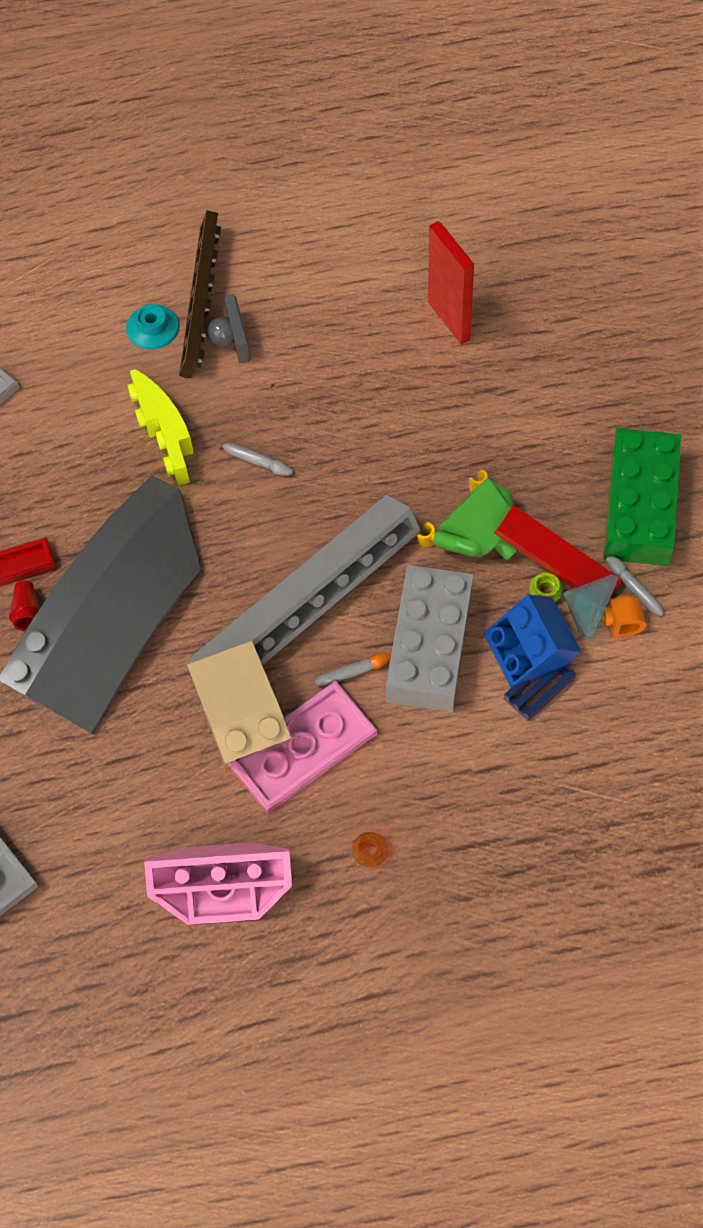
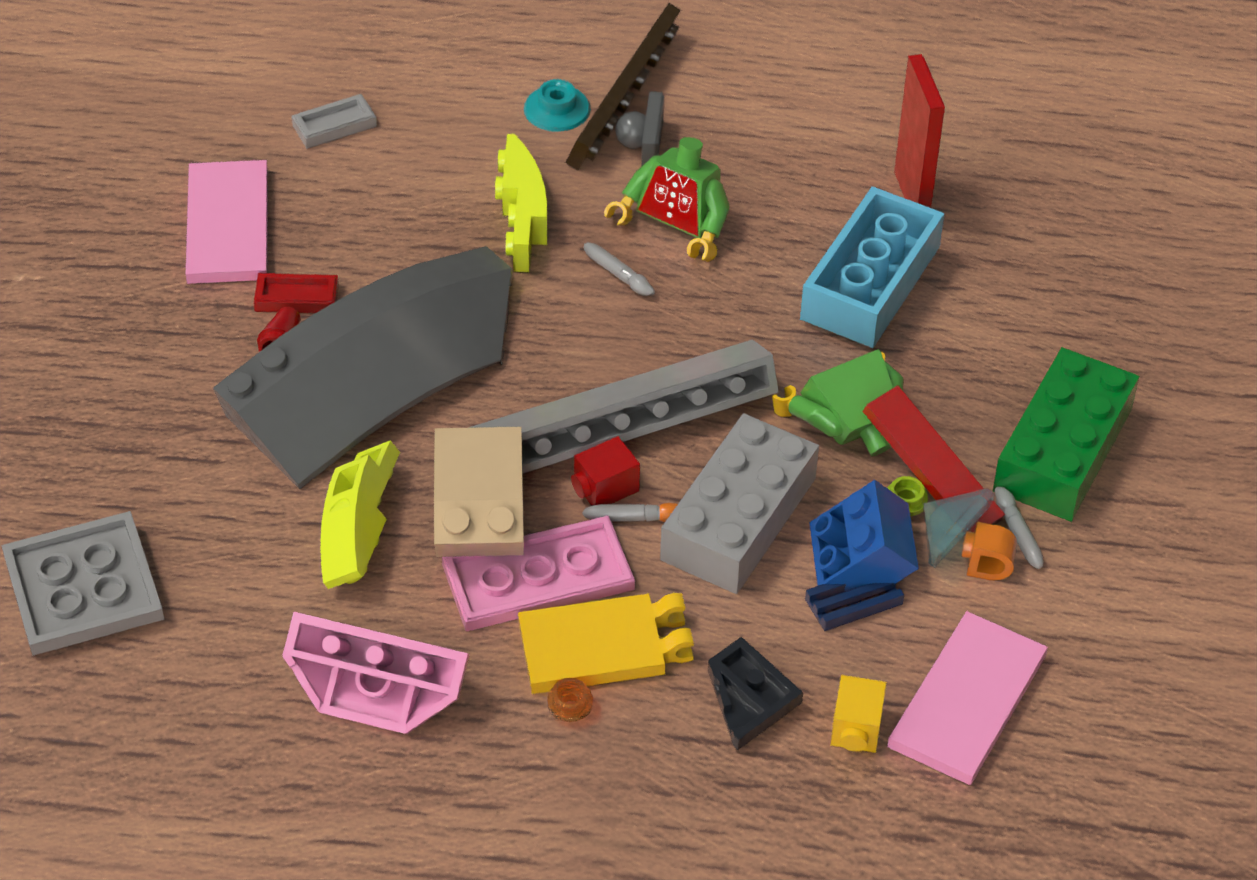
camera: 15 degrees right, 15 degrees down
(145, 749) = (351, 514): none -> neon yellow slope
(282, 380) = (681, 193): none -> torso
(320, 646) = (606, 473): none -> red brick
(371, 790) = (603, 640): none -> yellow tile
(449, 399) = (871, 266): none -> medium azure brick
(496, 795) = (750, 691): none -> black wing
(582, 788) = (858, 714): none -> yellow brick
(652, 743) = (967, 698): none -> bright pink tile

